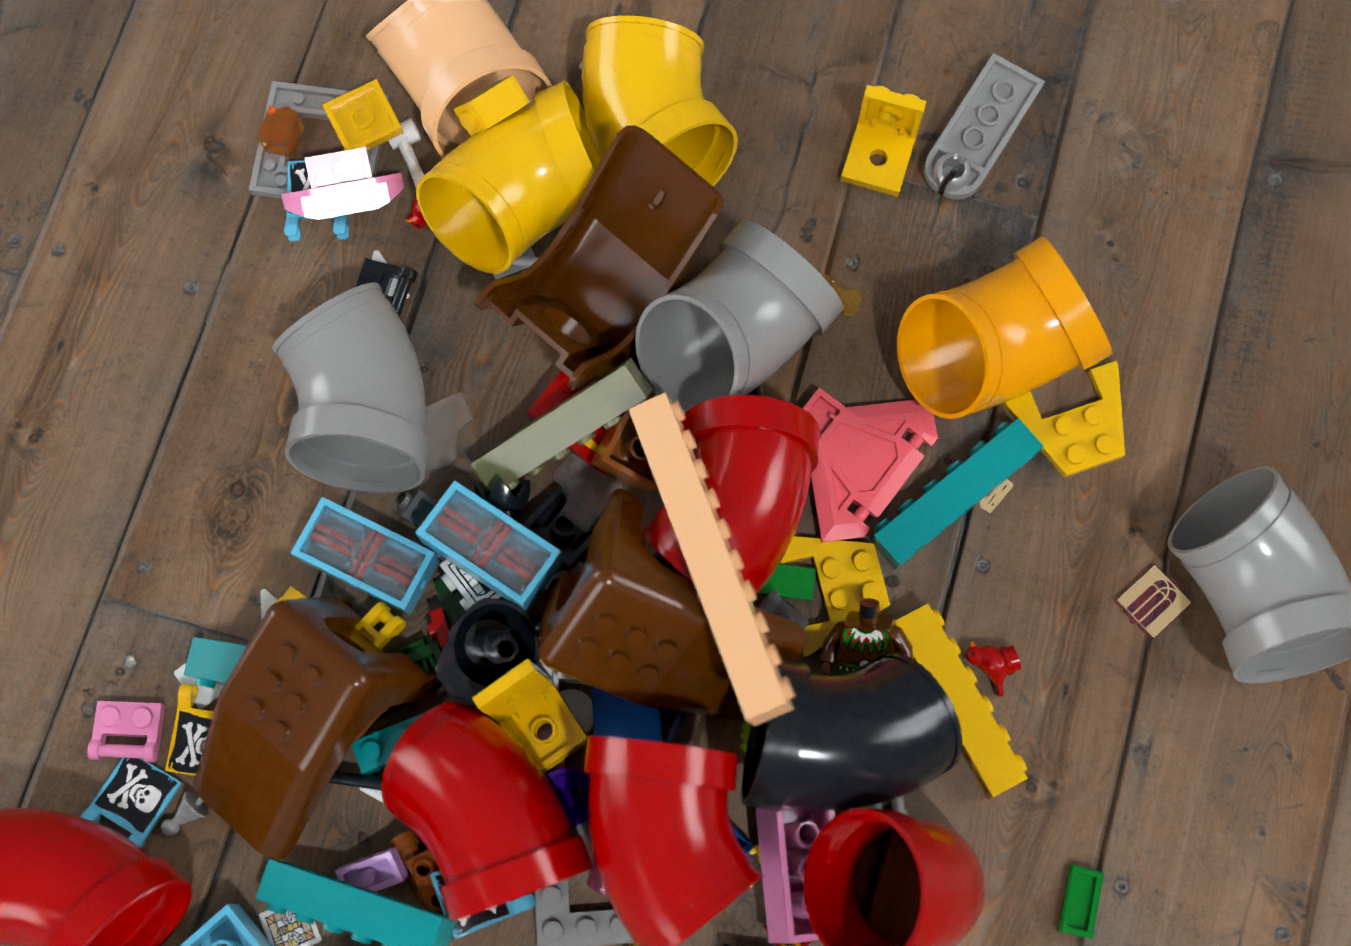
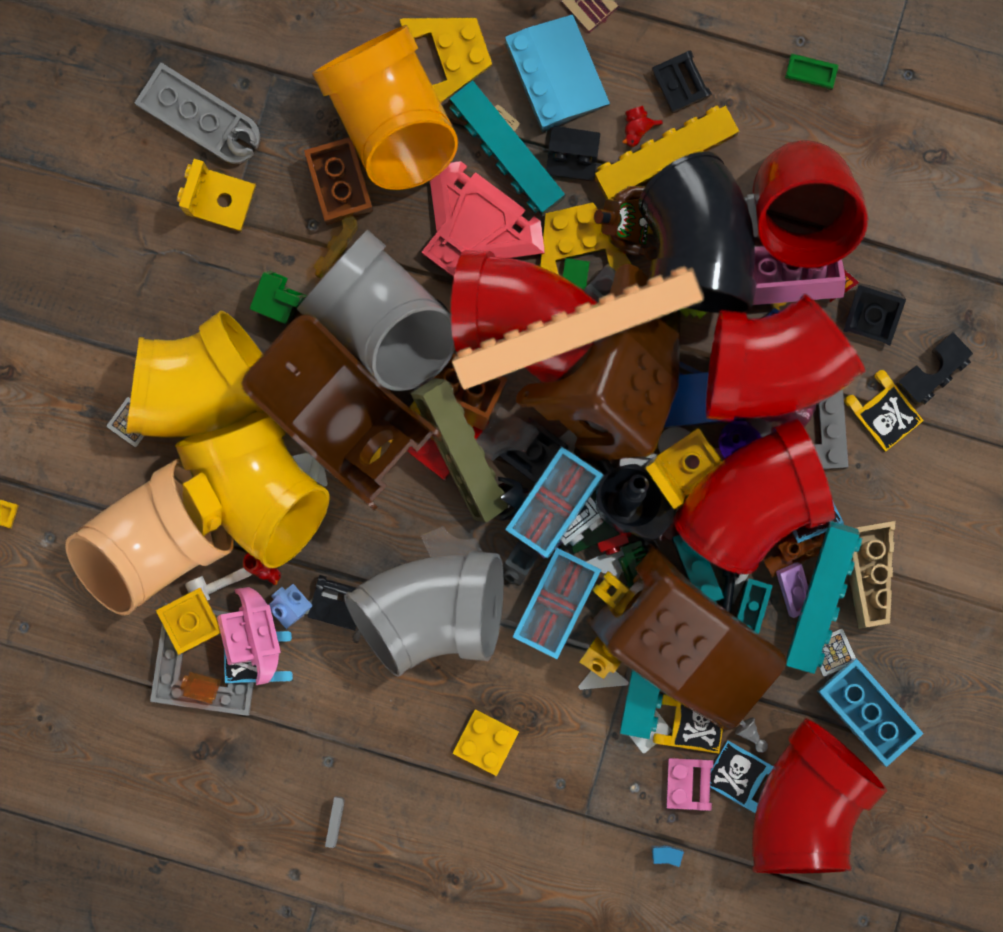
camera: 90 degrees left, 10 degrees up
(34, 699) = (667, 854): none -> dark azure piece
(113, 291) = (335, 821): none -> light grey tile
(199, 472) = (485, 742): none -> yellow plate
(351, 814) = (753, 603): none -> teal brick
(378, 233) = (289, 605): none -> light blue brick
(417, 624) = (608, 563): none -> white sticker
(760, 203) = (275, 299): none -> green plate
(900, 278) = (338, 180): none -> dark orange brick
(954, 578) = (573, 153): none -> black bracket
(1052, 711) = (674, 85): none -> black plate
(1060, 556) = (556, 71): none -> medium azure slope

